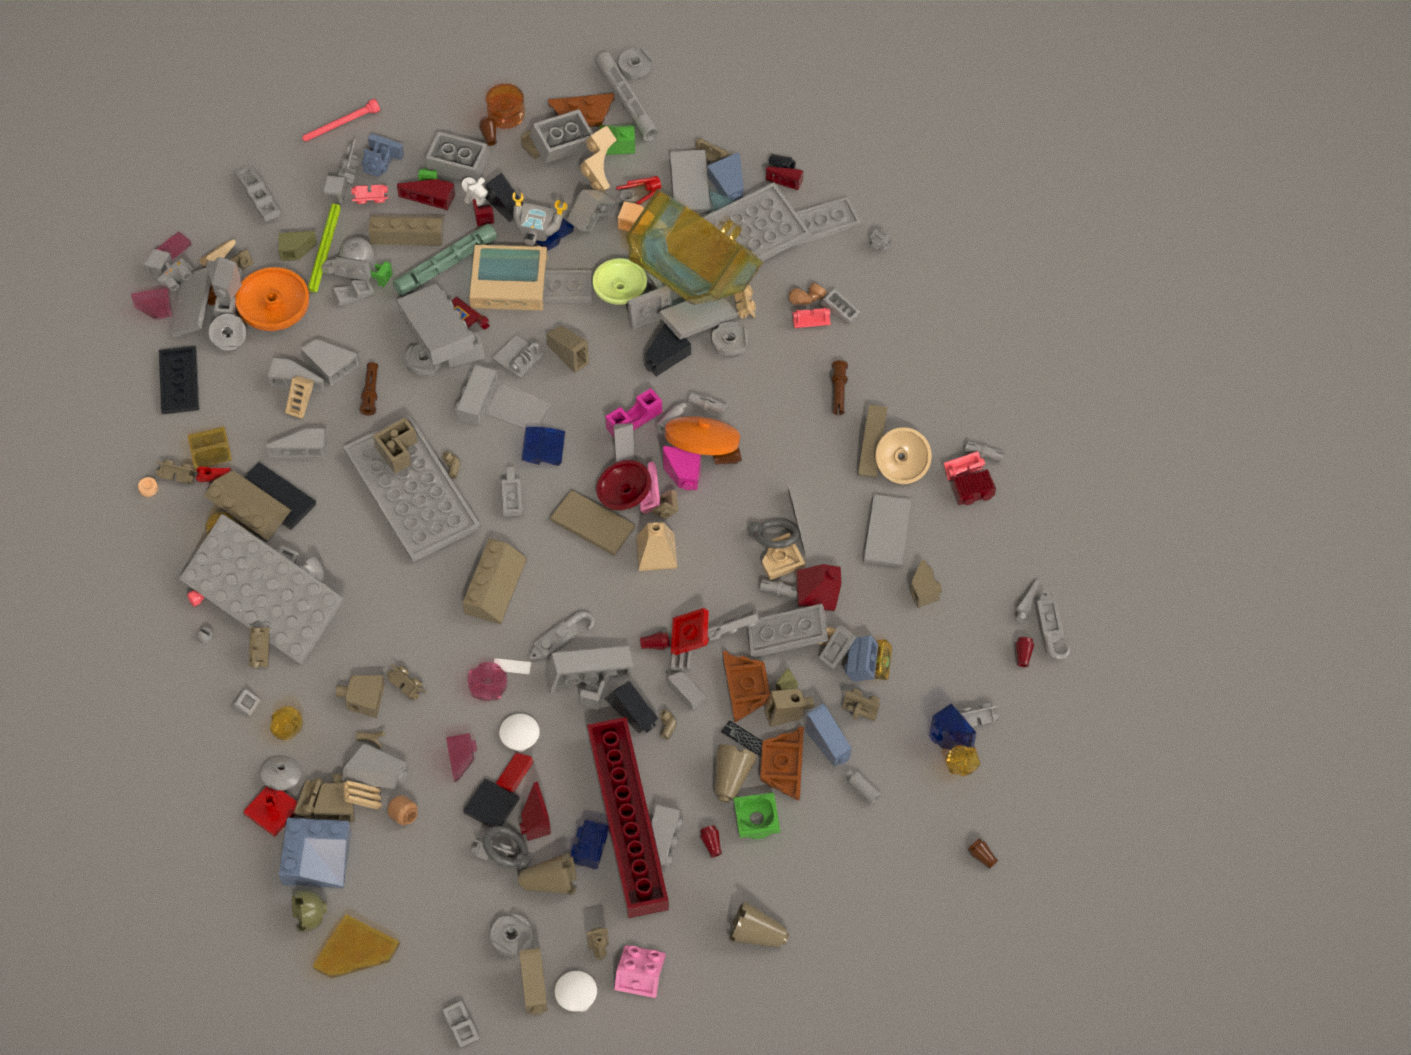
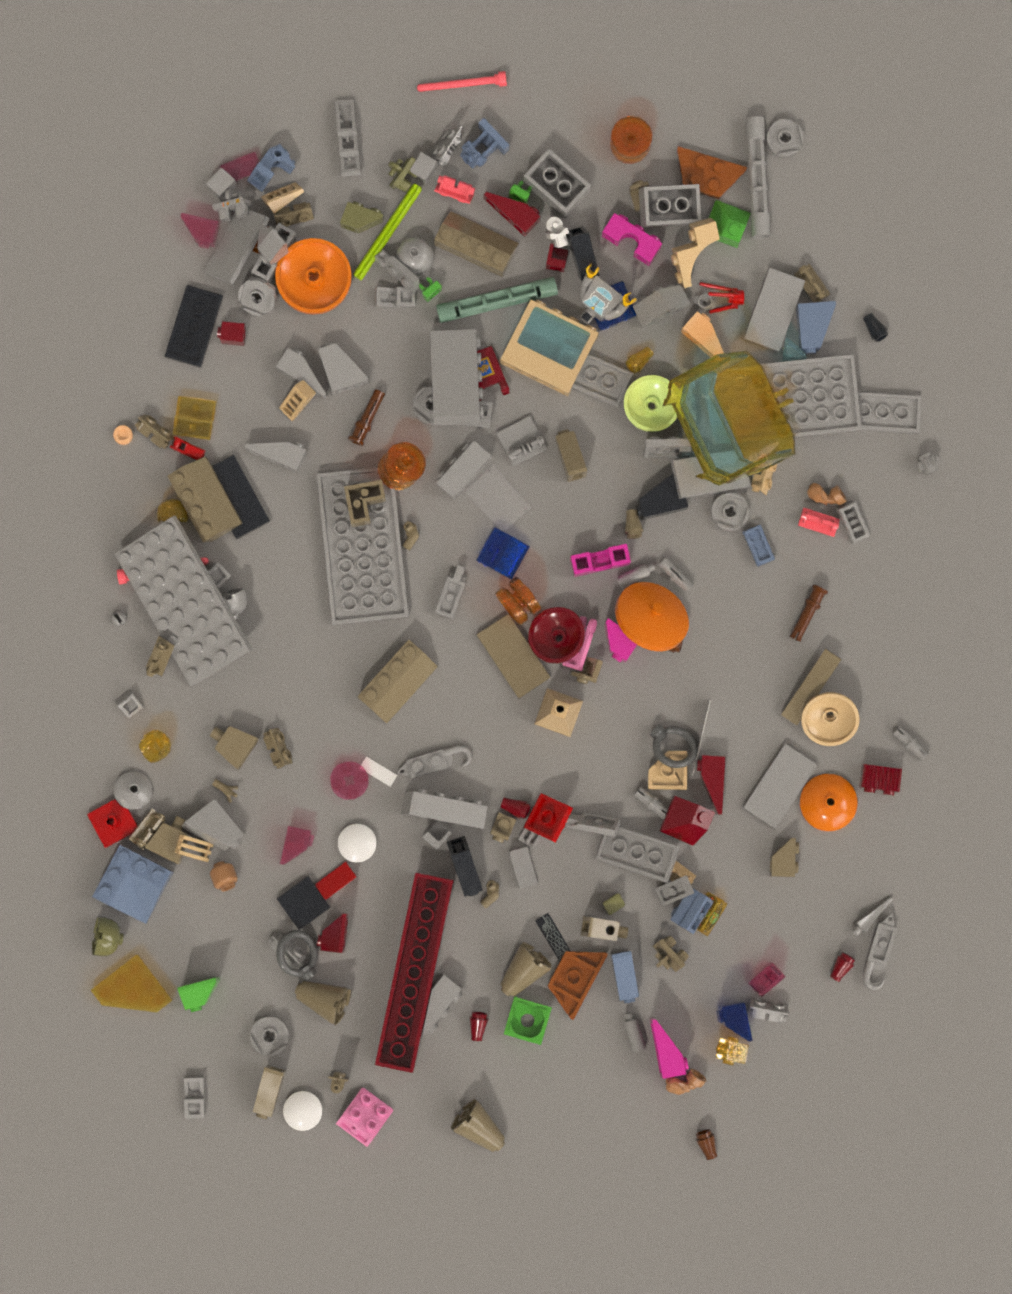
camera: 20 degrees right, 25 degrees up
(197, 228) = (262, 172): none -> sand blue tile
(216, 369) = (232, 333): none -> dark red brick
(311, 197) = (399, 181): none -> olive hips
(419, 406) = (401, 466): none -> clear orange wheel
(421, 920) = (197, 994): none -> bright green slope
(488, 130) = (602, 161): reddish brown cone -> none
(528, 171) = (620, 228): none -> dark pink arch
(575, 470) = (520, 599): none -> clear orange wheel
(590, 844) = (371, 982): clear blue brick -> none
(591, 258) = (638, 360): none -> clear yellow cone
(624, 442) = (576, 589): light grey slope -> none
(649, 379) = (633, 526): none -> dark tan cone
(651, 664) = (502, 827): none -> dark tan bracket
(746, 684) = (577, 886): dark orange wing -> none
(768, 354) = (758, 545): none -> sand blue plate
(785, 177) = (874, 350): dark red slope -> none
(823, 545) = (712, 775): none -> dark red slope
(902, 783) = (669, 1058): none -> dark pink slope
(929, 814) = (694, 1080): none -> medium nougat arm
(935, 535) = (815, 807): none -> orange dish
(962, 686) = (766, 979): none -> clear pink slope
(963, 465) = (881, 750): coral hinge -> none

